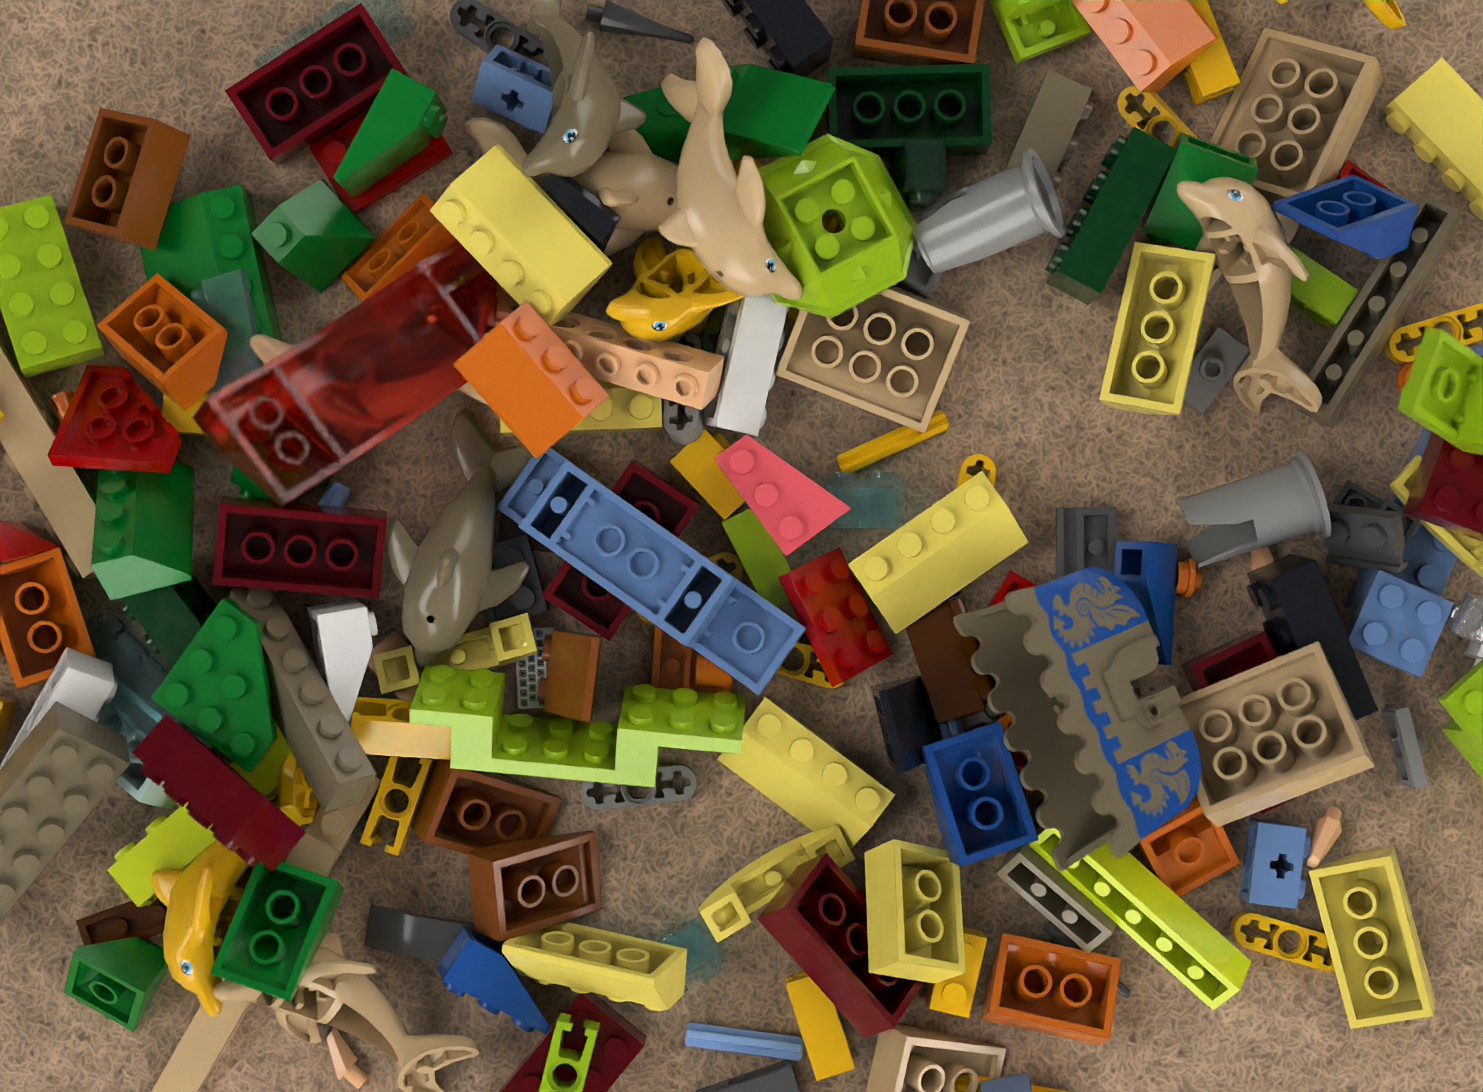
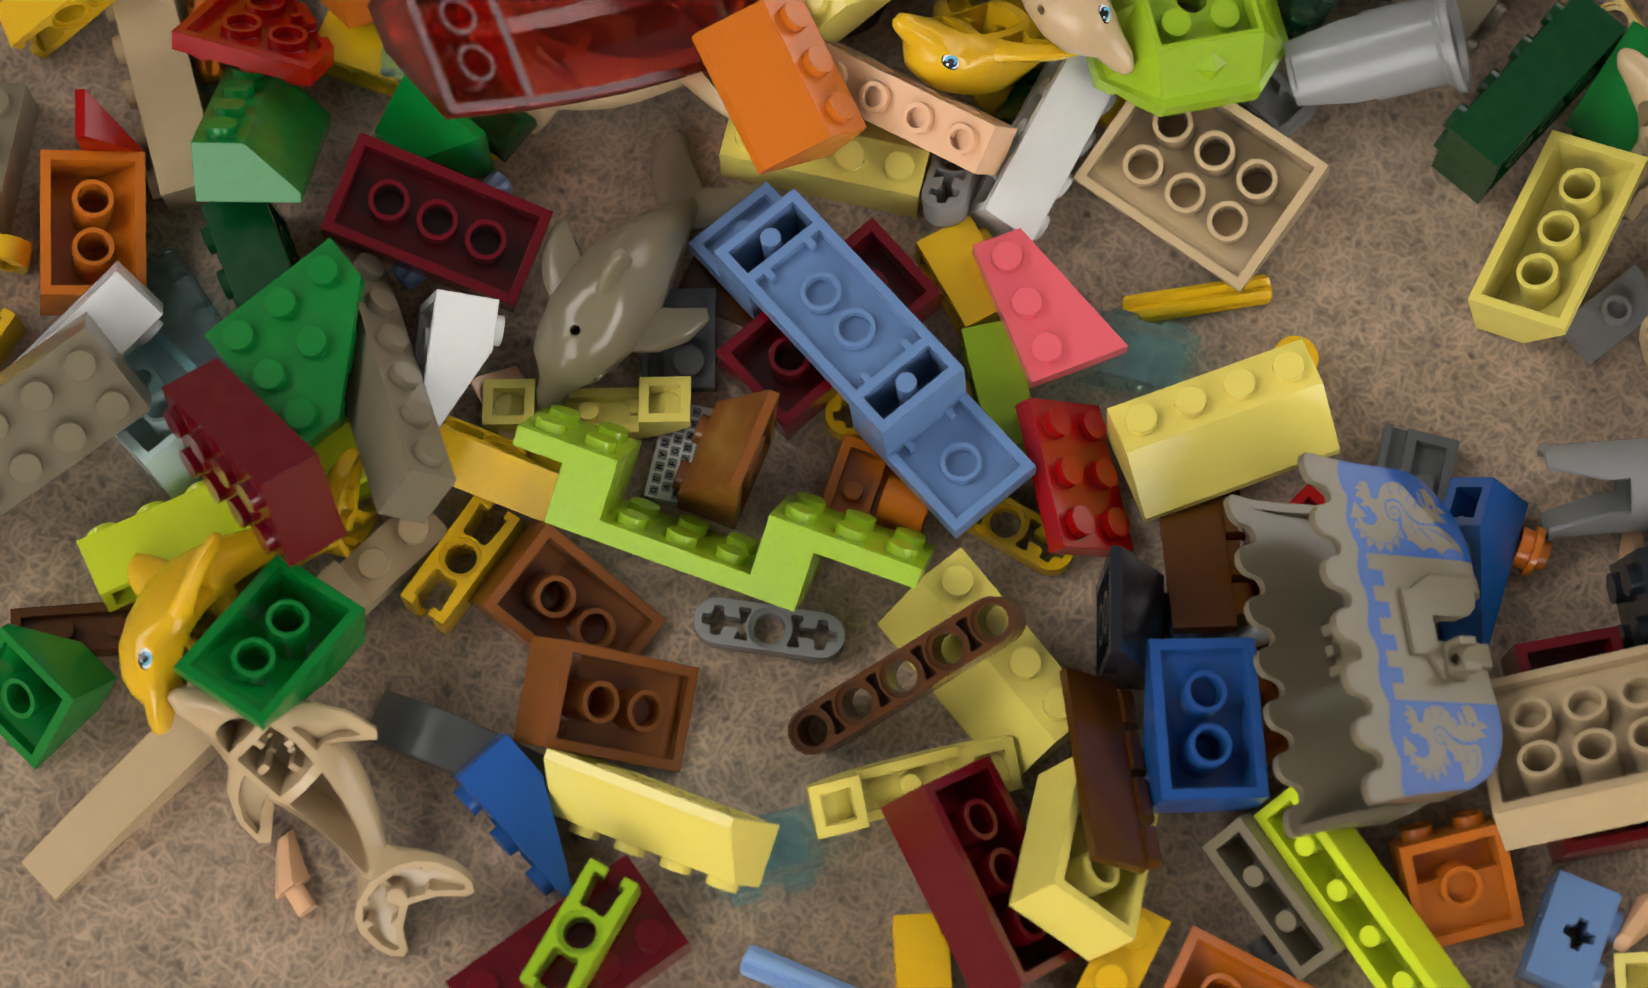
camera: 10 degrees right, 15 degrees down
(761, 794) = (882, 682): none -> reddish brown beam
(910, 839) = (1110, 773): none -> reddish brown windscreen

